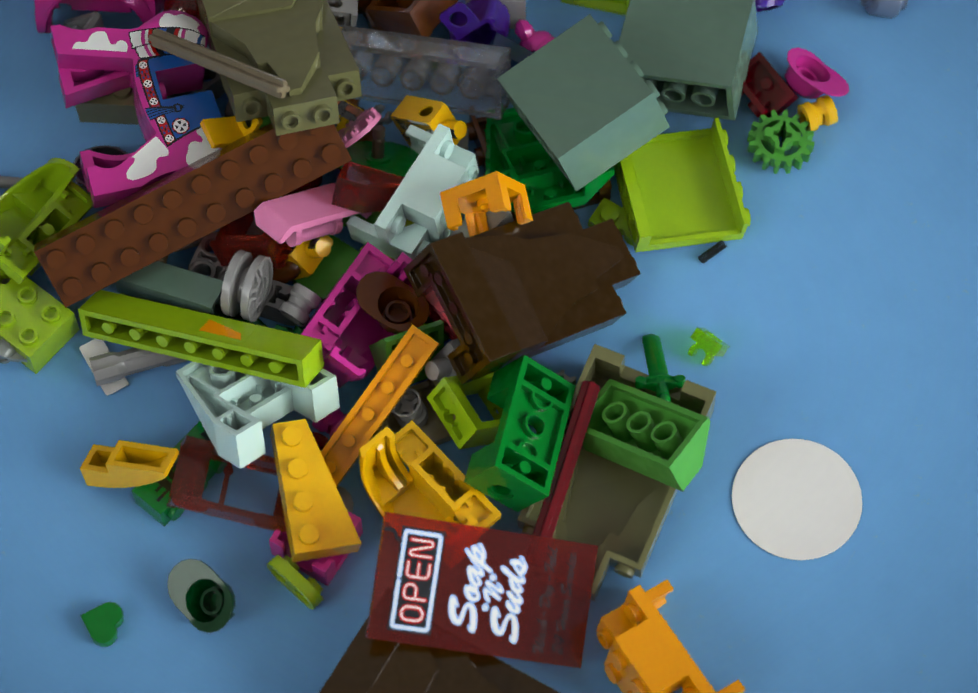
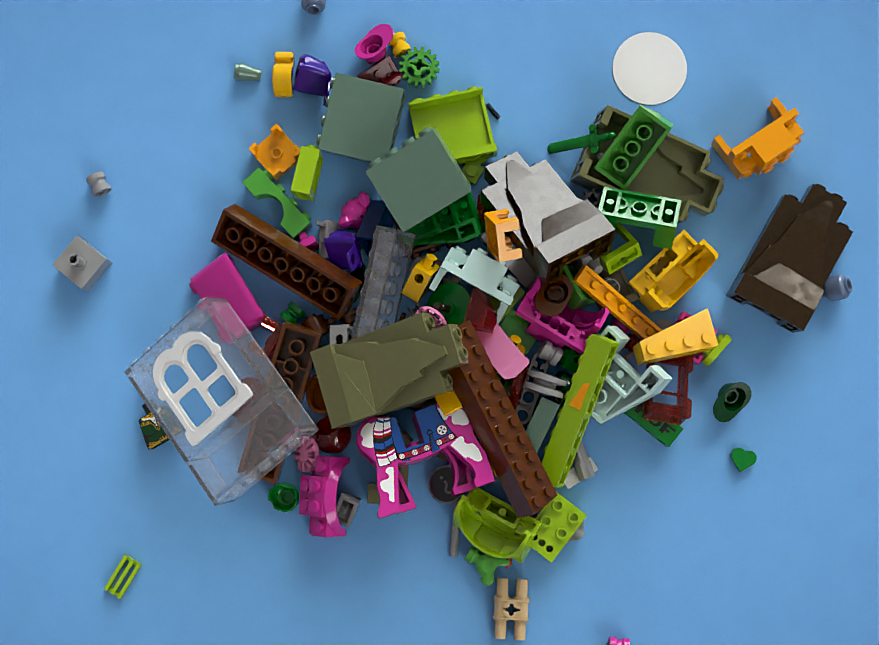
camera: 90 degrees left, 20 degrees up
(127, 464) = (654, 448): yellow slope -> none
(219, 63) = (416, 402): dark tan axle -> none
(481, 590) = (737, 238): clear red piece -> none
(567, 459) = (631, 185): dark red axle -> none
(709, 343) = (557, 112): clear neon green tile -> none

